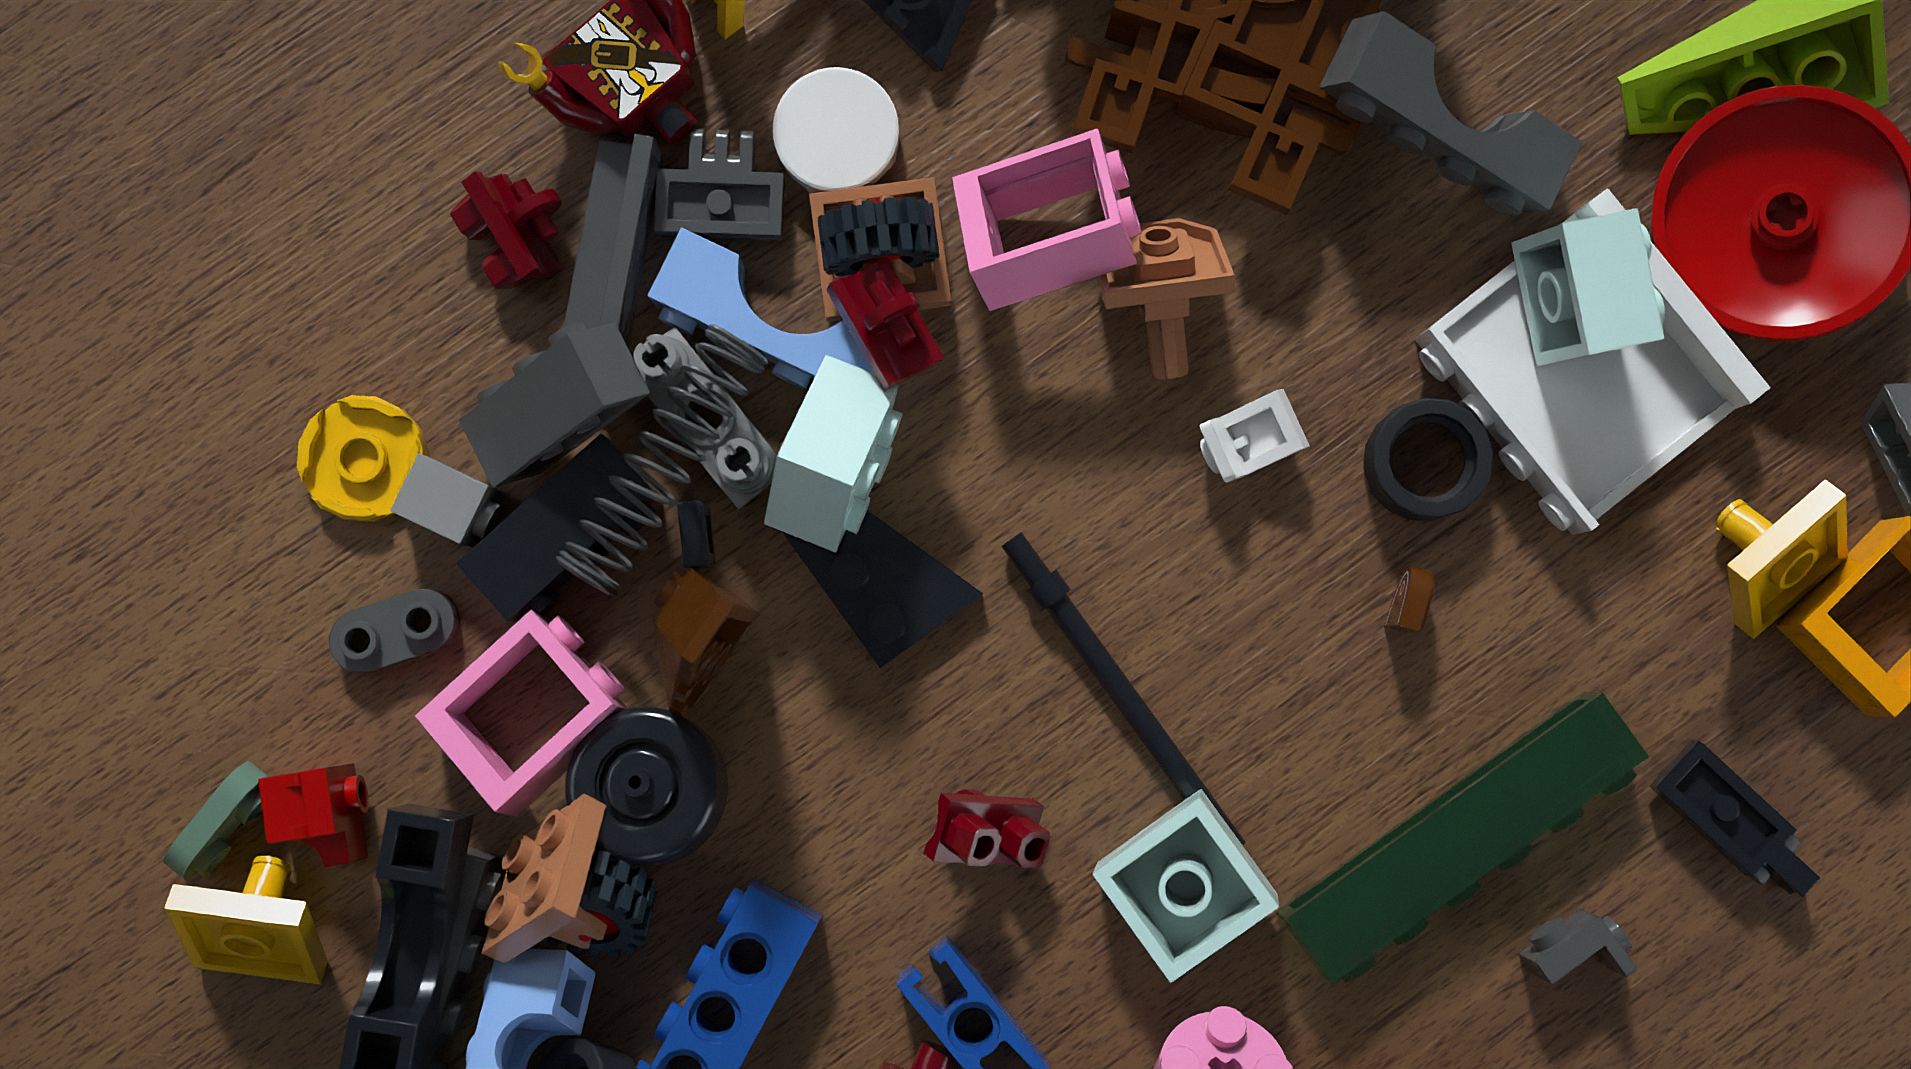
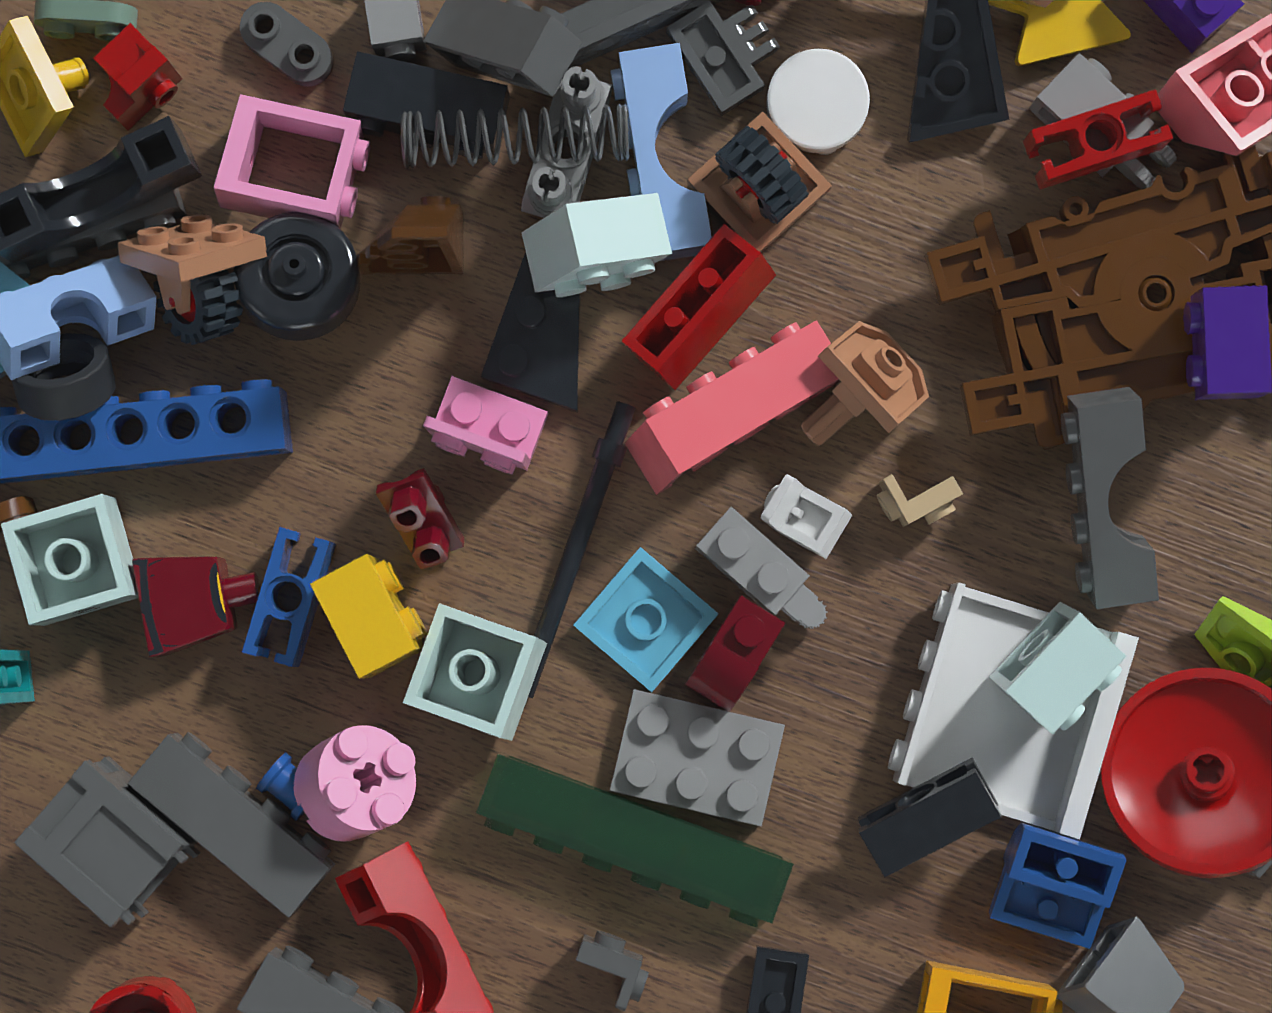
camera: 60 degrees right, 0 degrees up
(696, 535) = (484, 195): black tile -> none
(885, 323) = (704, 217): dark red hips -> none
(934, 696) = (488, 424): none -> bright pink bracket
(970, 400) = (699, 307): none -> red brick
(1032, 182) = (872, 251): bright pink window -> none
(1056, 954) = (369, 615): none -> yellow brick
(1093, 433) = (732, 405): none -> coral wedge
(1244, 671) = (645, 619): none -> medium azure tile
(1277, 518) = (761, 569): none -> light grey hinge
(1323, 304) = (931, 504): none -> tan bracket
(1353, 616) = (735, 653): none -> dark red brick
(1411, 600) = (770, 697): reddish brown tile -> none
(1419, 715) = (697, 757): none -> light grey plate
(1466, 429) = (910, 654): black tyre -> none
(1644, 523) = (928, 817): none -> black piece
(1782, 558) = (971, 926): yellow tile -> none
(1795, 439) = (1055, 885): none -> blue brick

